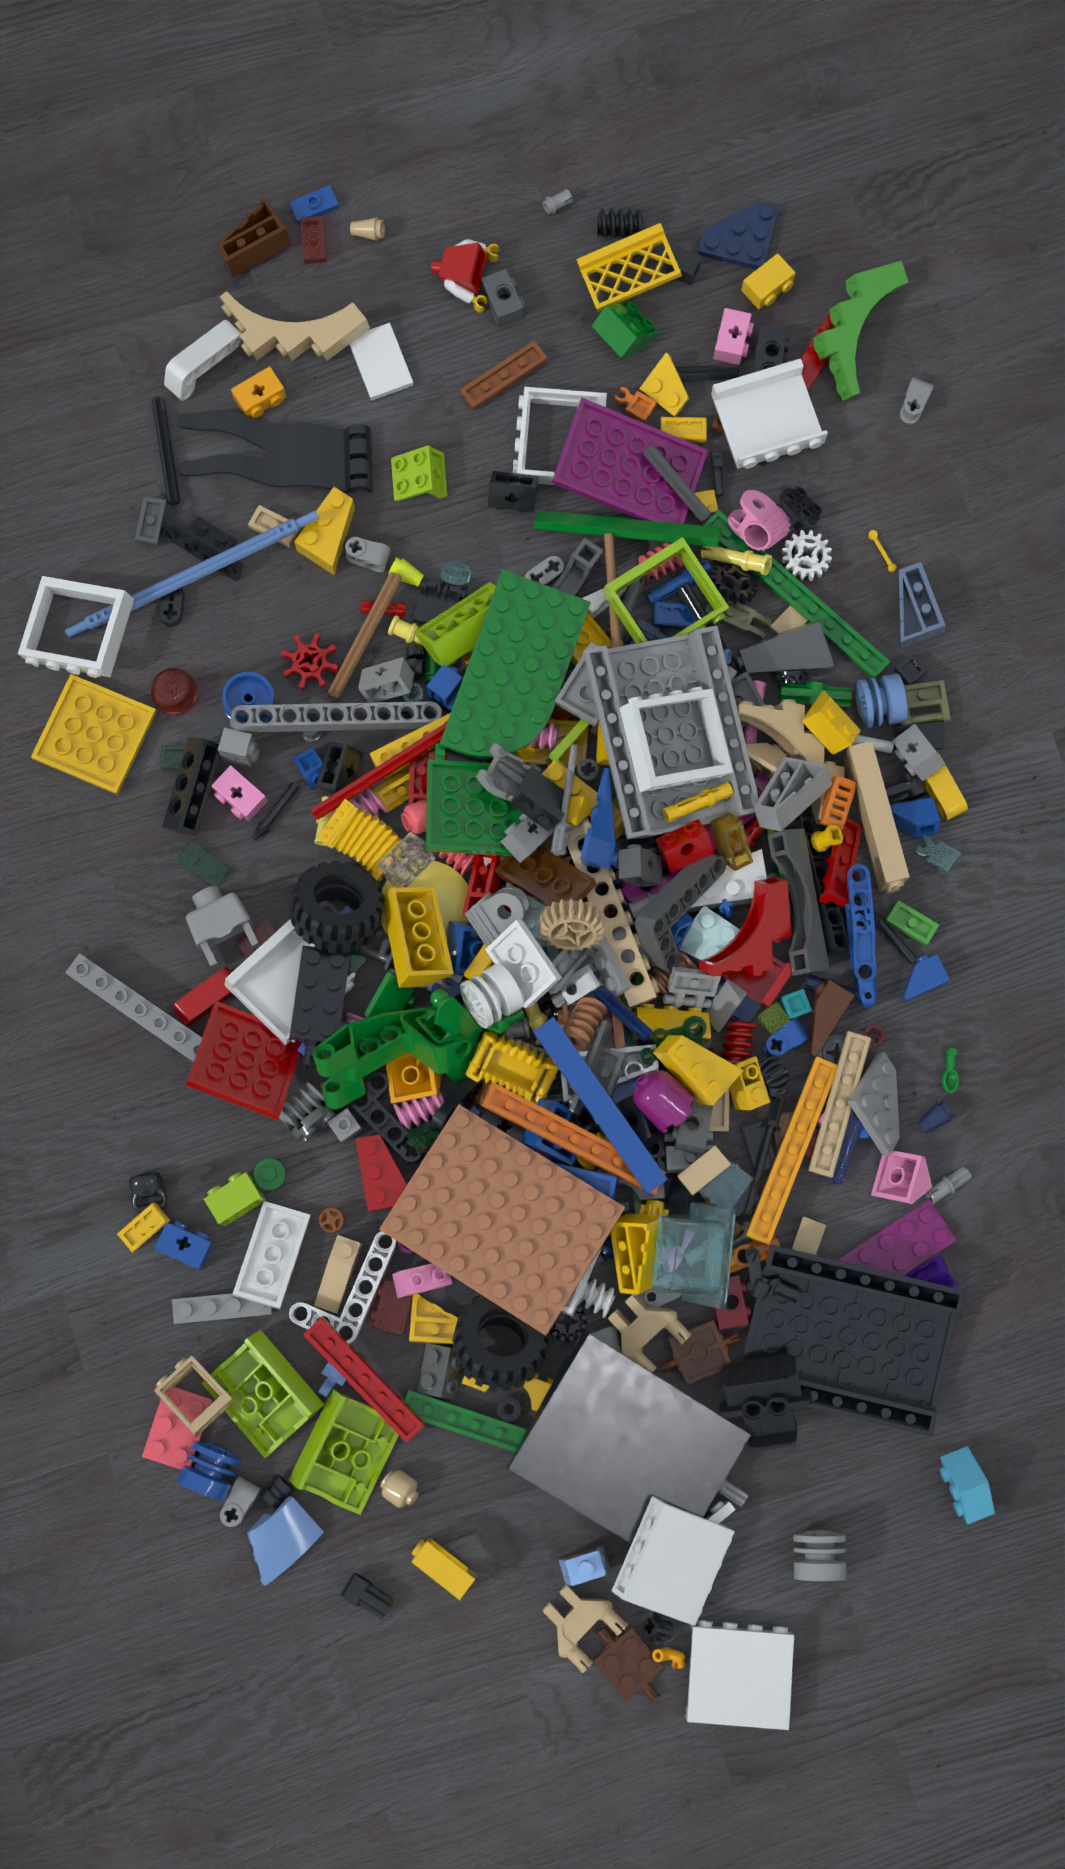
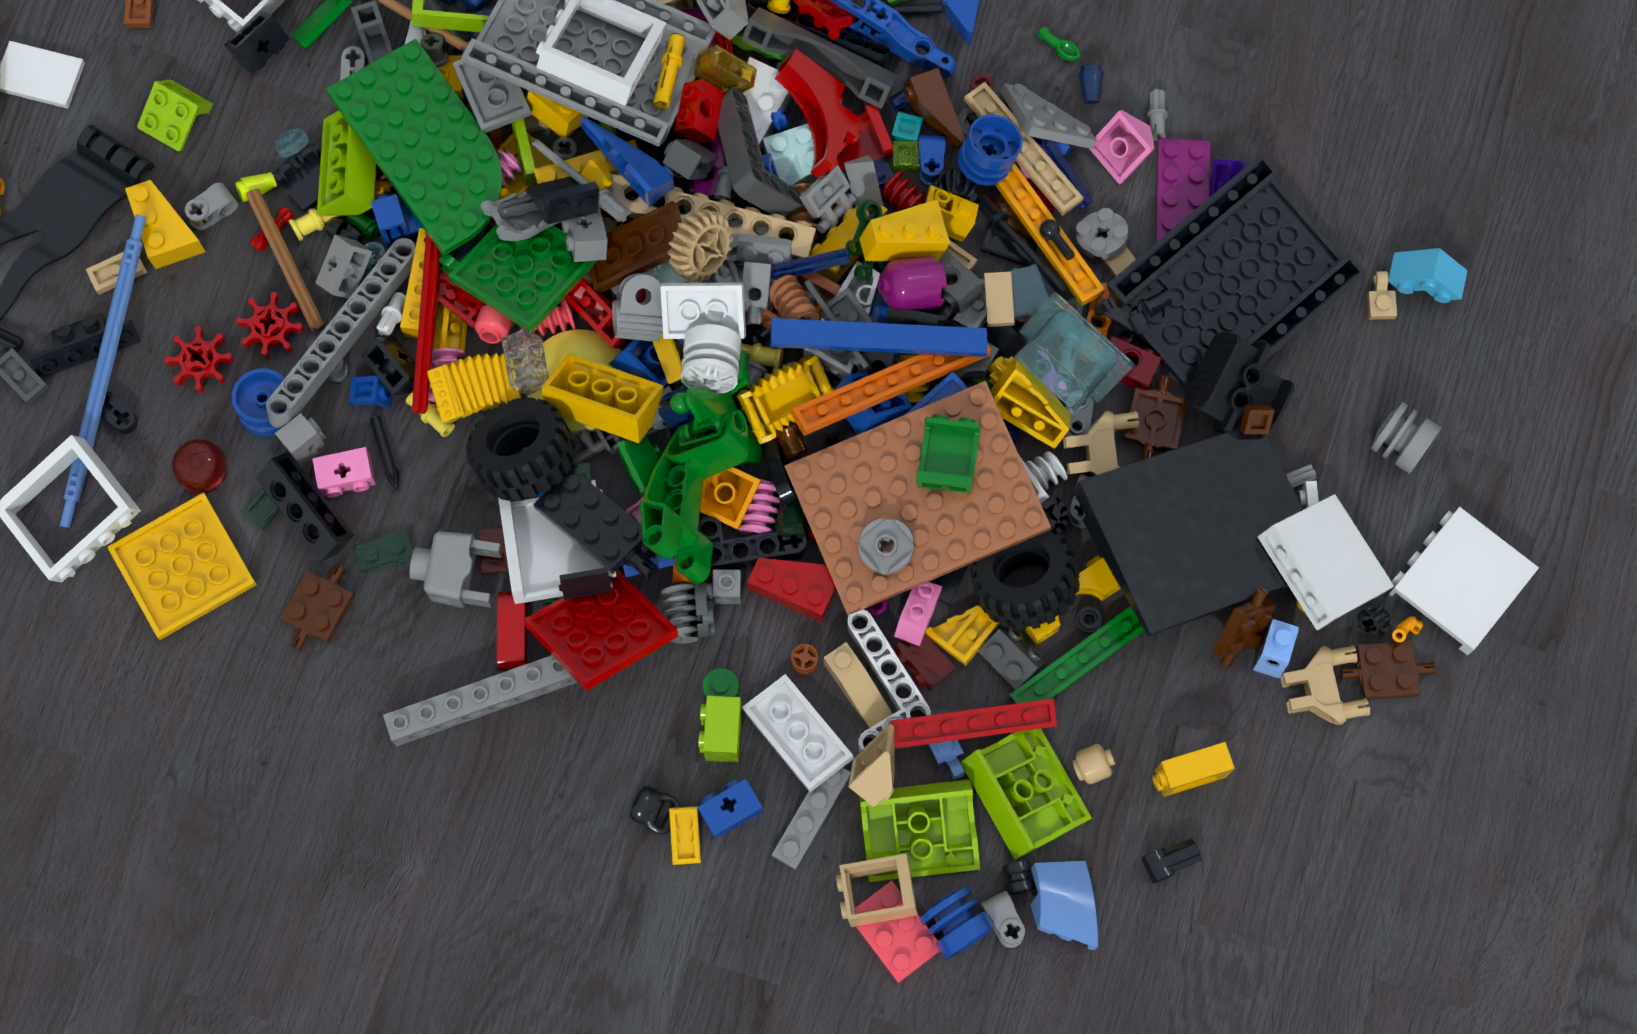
camera: 55 degrees left, 5 degrees down
(130, 849) = (317, 607): none -> reddish brown plate
(242, 627) = (204, 350): none -> red gear
(269, 1025) = (585, 583): none -> black piece
(276, 1332) = (875, 768): none -> tan slope
(376, 739) = (391, 314): none -> white axle
(438, 1211) = (870, 546): none -> light grey plate
(545, 1221) = (949, 454): none -> green panel
(578, 1533) = (1245, 627): none -> reddish brown plate
(596, 622) = (433, 46): none -> dark grey bush
(746, 1432) = (1257, 419): none -> reddish brown plate
(786, 1171) = (1049, 231): none -> black bar
(806, 1216) = (1099, 222): none -> light grey plate
(825, 1086) = (989, 149): none -> blue wheel
(922, 1463) = (1380, 301): none -> tan plate

